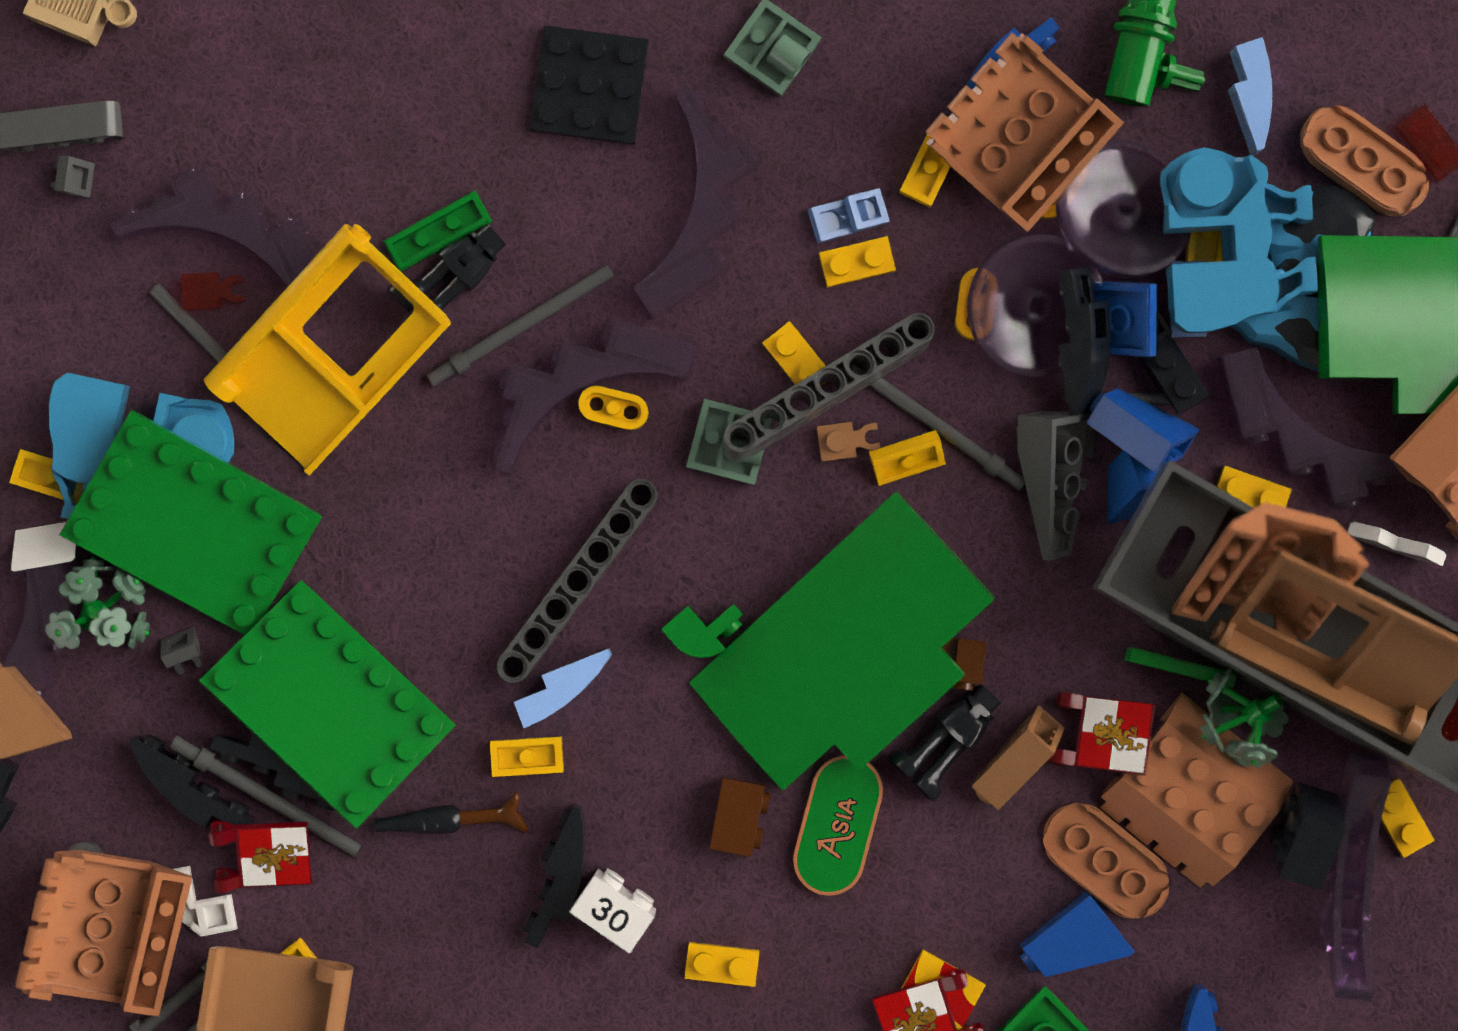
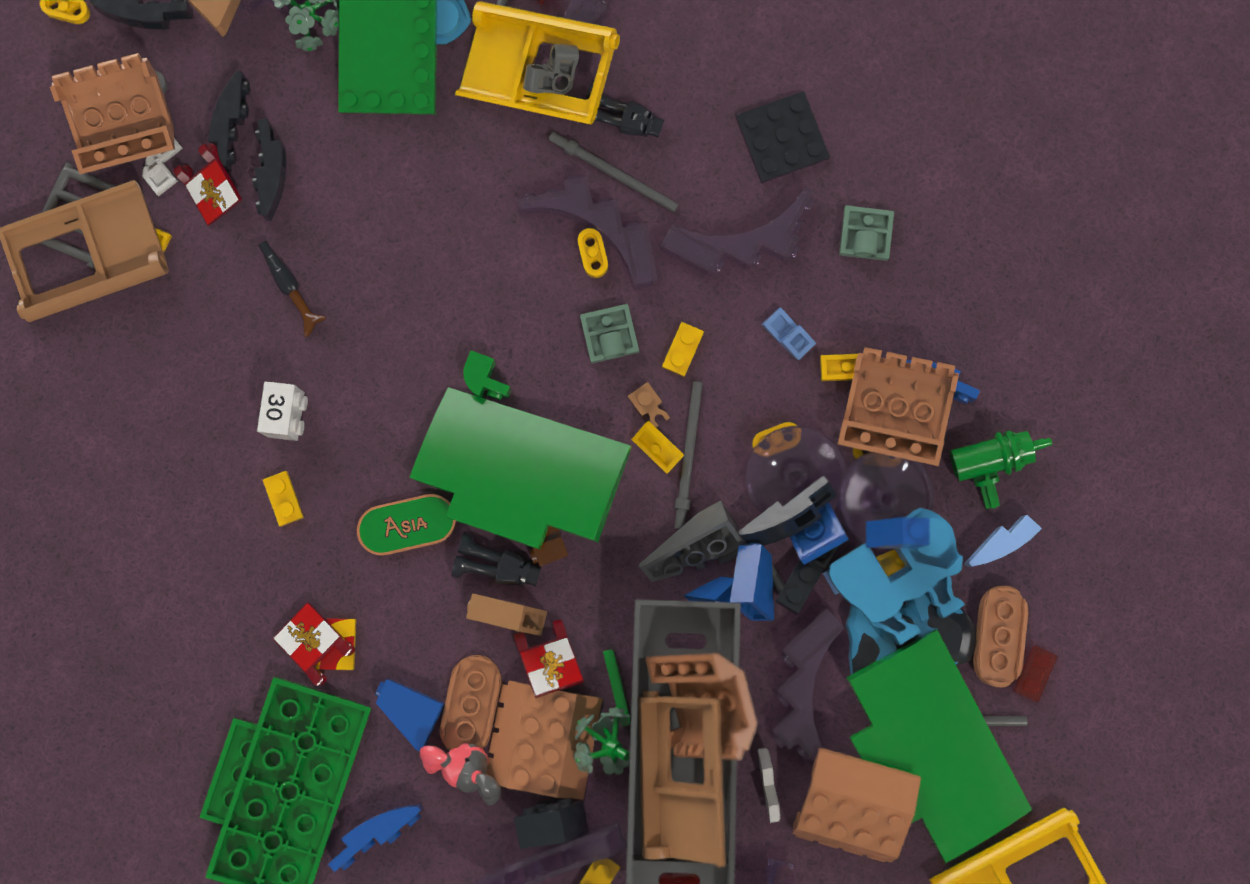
camera: 60 degrees right, 5 degrees down
(181, 648) = (311, 73): dark grey tile -> none
(205, 760) = (249, 121): dark grey bar -> none
(327, 704) = (320, 176): green plate -> none
(358, 333) = (561, 62): none -> dark grey piece
(437, 231) = (644, 93): green tile -> none
(526, 756) = (351, 312): yellow plate -> none
(561, 589) = (464, 279): dark grey beam -> none
(561, 687) = (403, 310): light blue slope -> none
(566, 863) = (296, 369): black slope -> none
(738, 817) = (378, 459): reddish brown brick -> none
(819, 401) = (662, 373): dark grey beam -> none
(857, 261) = (763, 354): yellow plate -> none
(1187, 219) = (898, 533): none -> blue slope
(1188, 916) = (461, 774): none -> hair
(1252, 489) = (751, 664): yellow plate -> none

